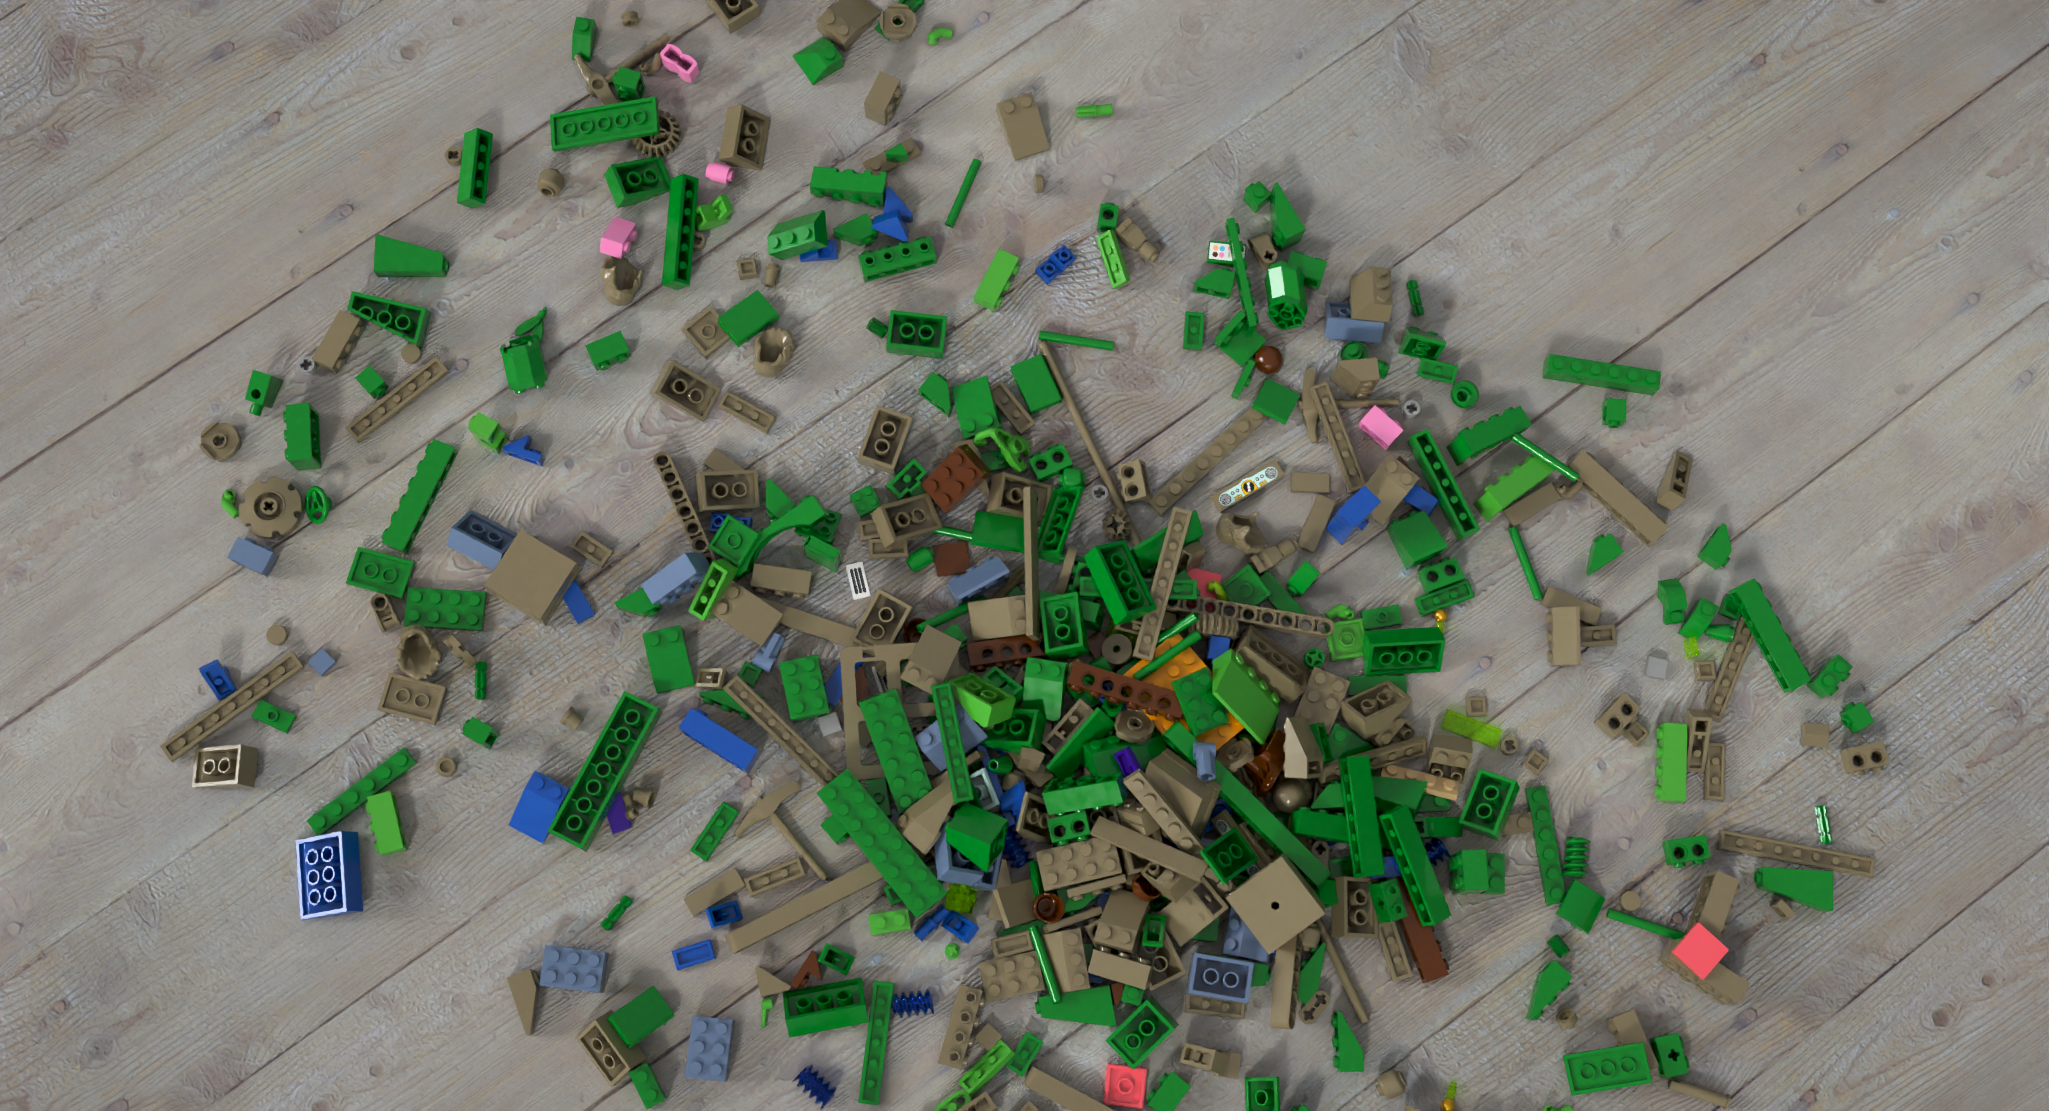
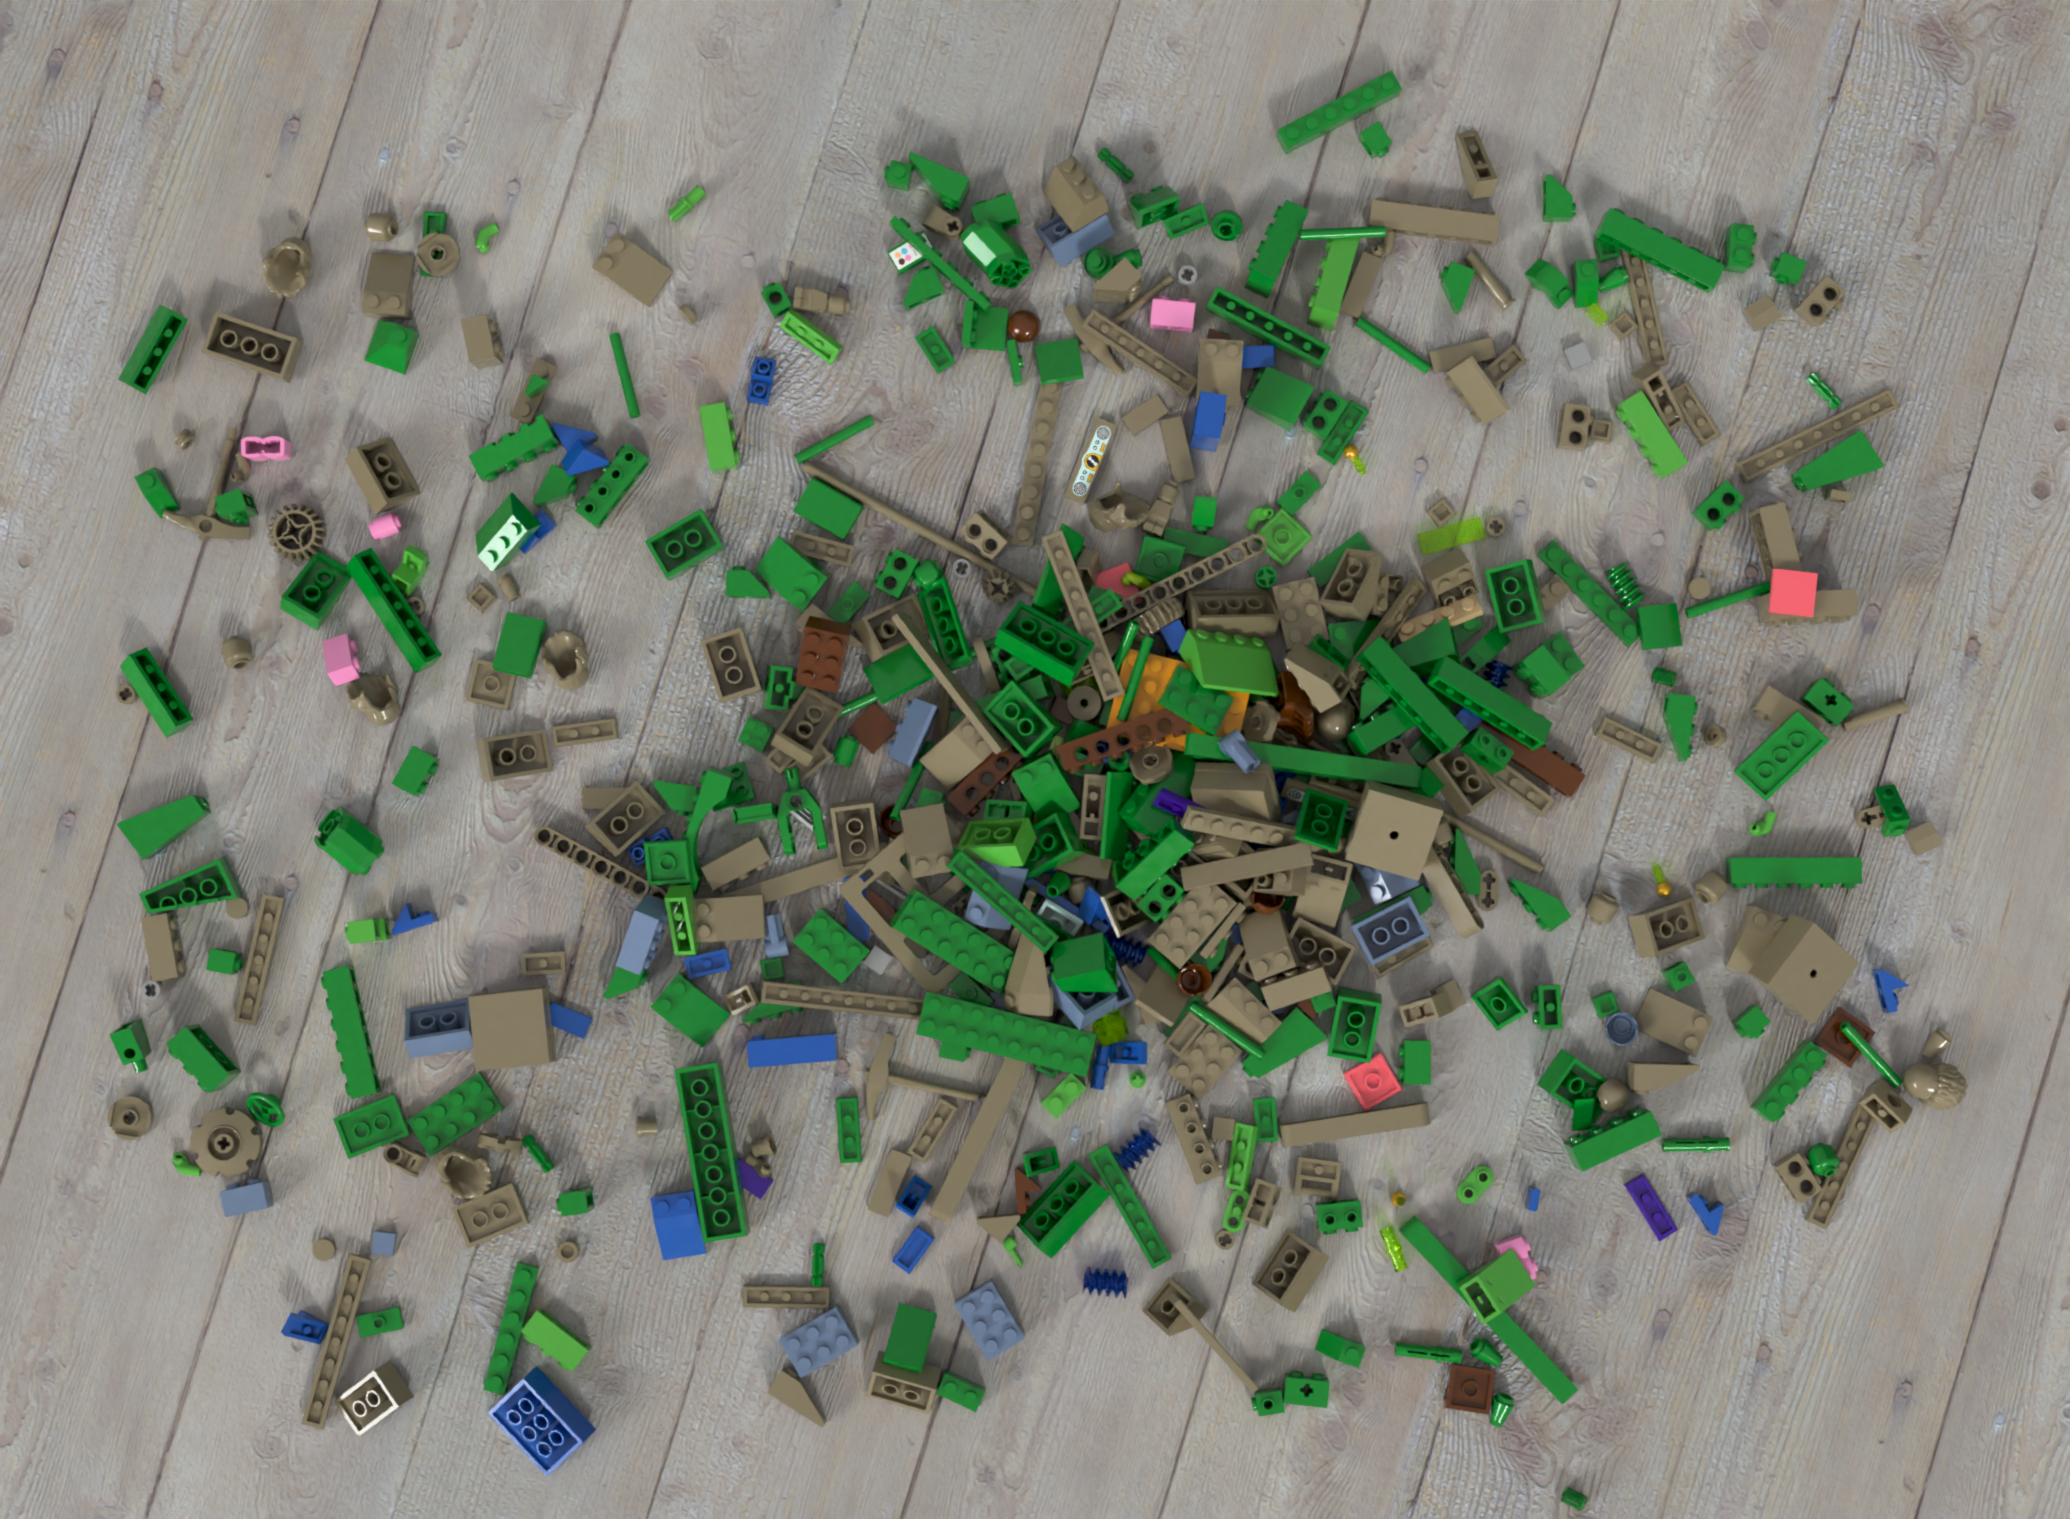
camera: 25 degrees left, 10 degrees up
(533, 323) = (328, 795): green piece -> none
(576, 919) = (786, 1296): none -> dark tan tile
(604, 124) = (243, 560): green plate -> none
(706, 636) = (707, 963): none -> blue plate
(841, 571) = (786, 806): none -> green piece
(876, 326) = (651, 567): green piece -> none
(1010, 446) = (848, 586): bright green animal -> none
(1030, 759) = (1081, 861): dark tan piece -> none
(1154, 931) = (1302, 933): green slope -> none
(1402, 651) = (1340, 511): green slope -> none
(1499, 974) = (1629, 739): none -> dark tan tile
(1535, 761) = (1528, 523): dark tan tile -> none
(1628, 568) = (1489, 280): none -> dark tan pin

